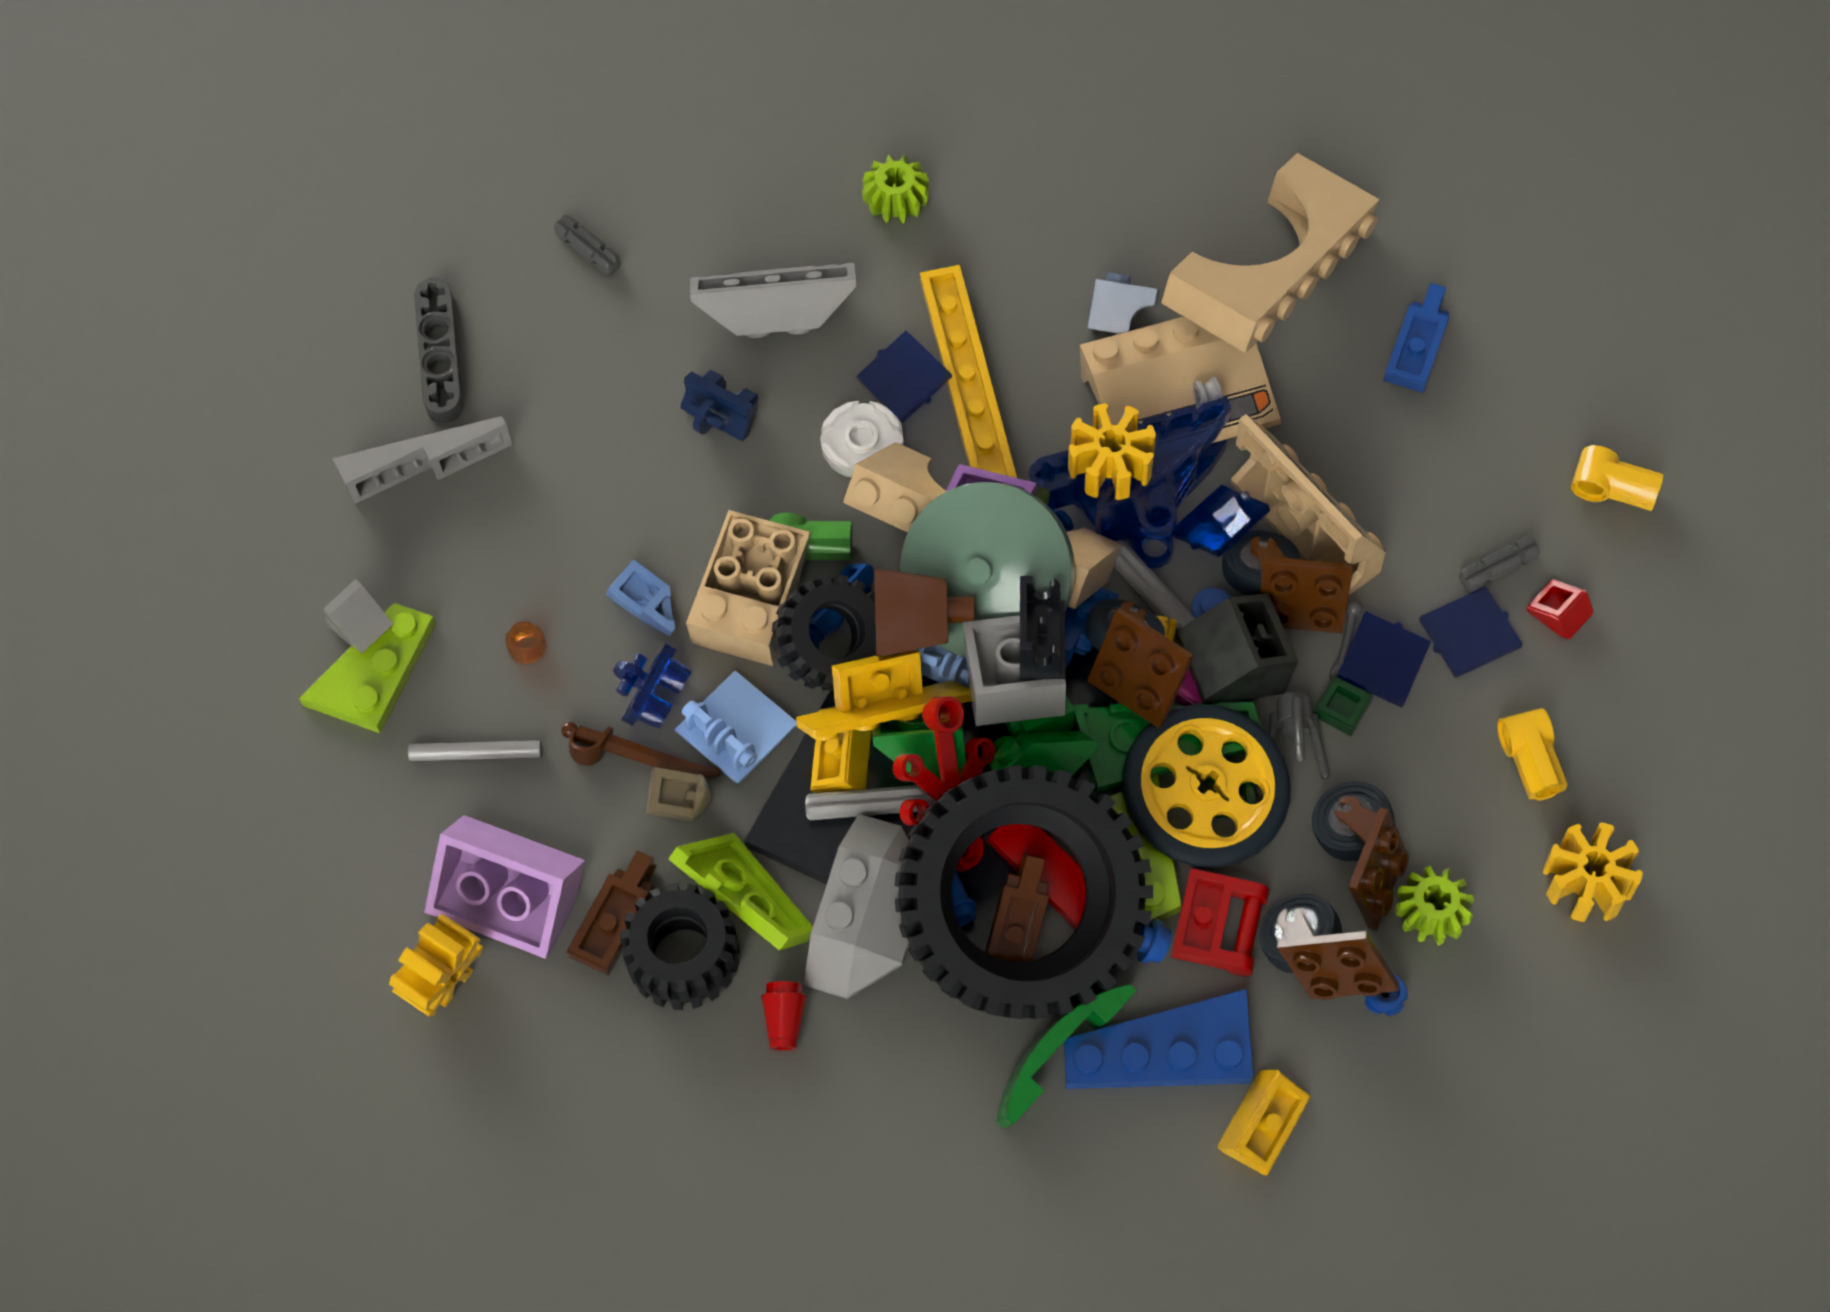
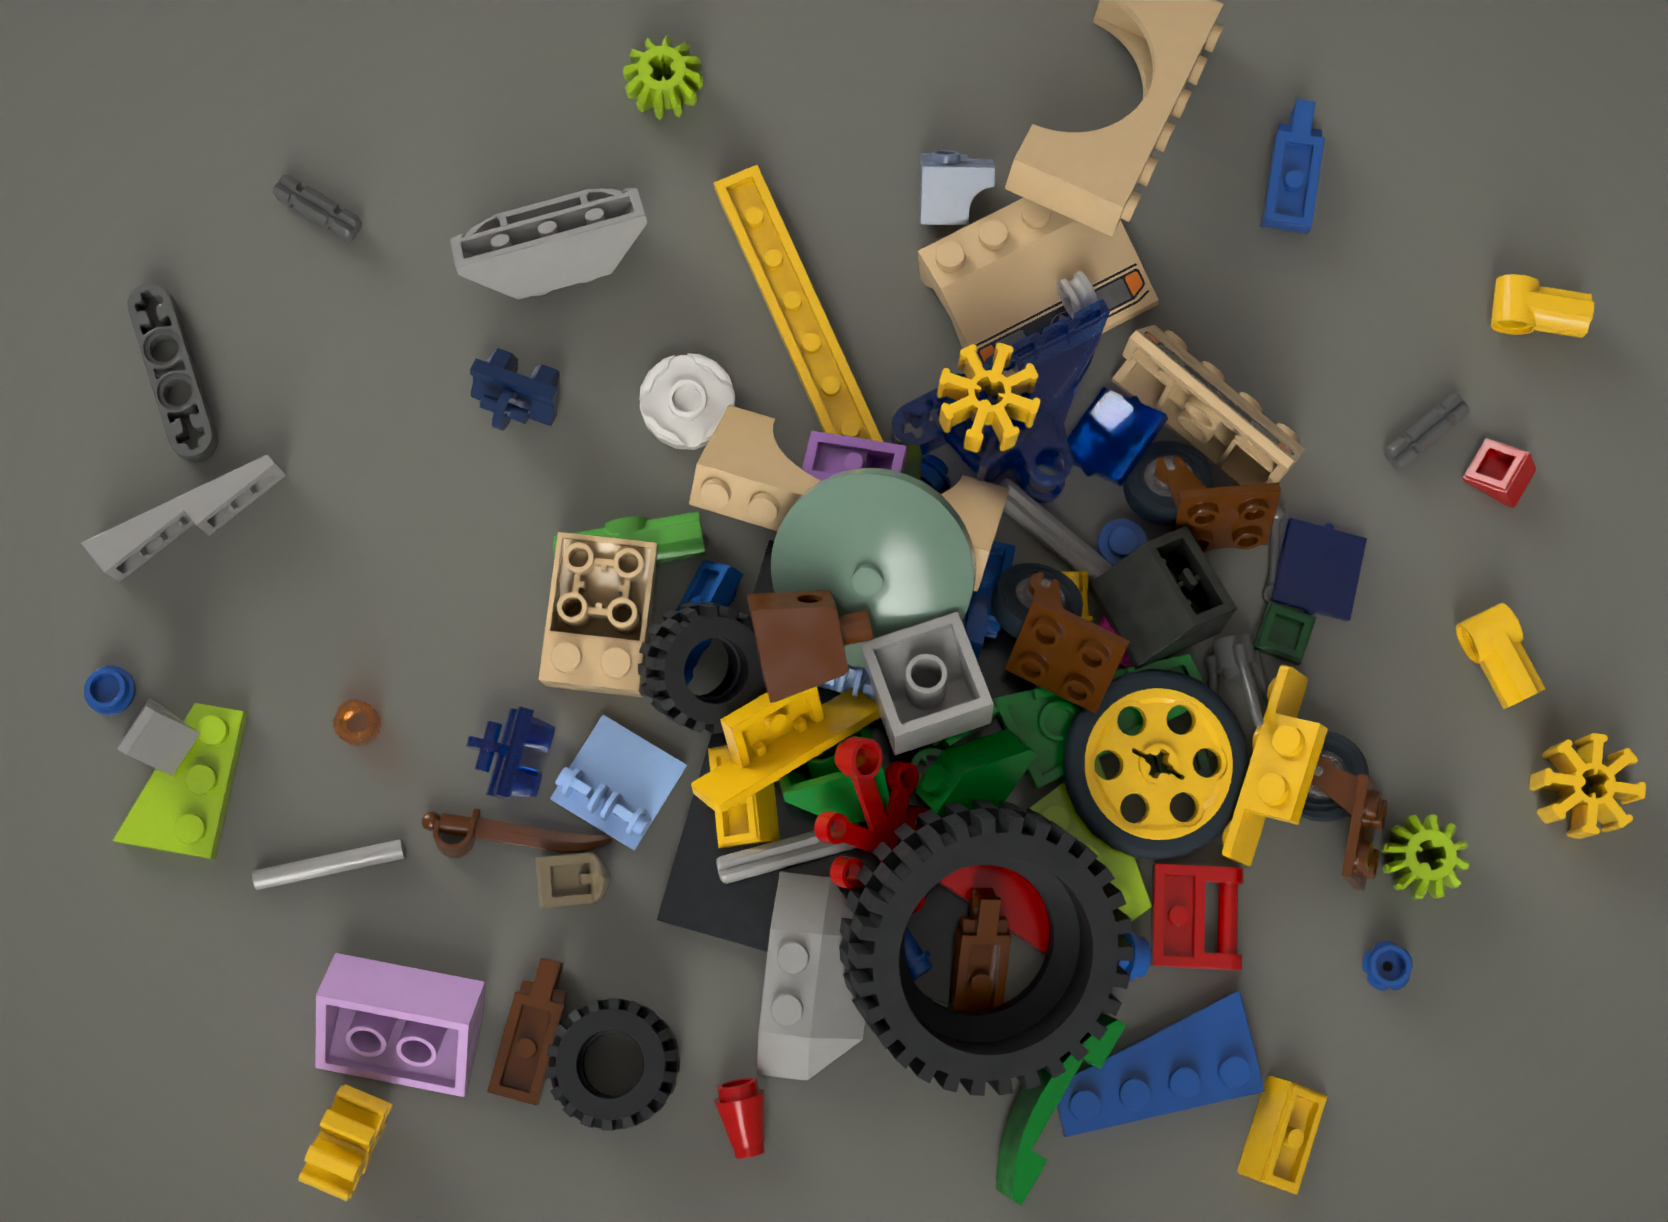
camera: 15 degrees left, 15 degrees up
(325, 581) = (109, 690): none -> blue plate
(644, 597) = (481, 642): medium blue slope -> none
(744, 887) = (670, 981): lime wing -> none
(904, 376) = (721, 316): clear blue piece -> none
(1041, 631) = (954, 646): black hinge -> none
(1308, 940) = (1292, 925): reddish brown plate -> none
(1310, 807) = (1279, 768): none -> yellow bracket
(1470, 632) = (1407, 518): clear blue piece -> none

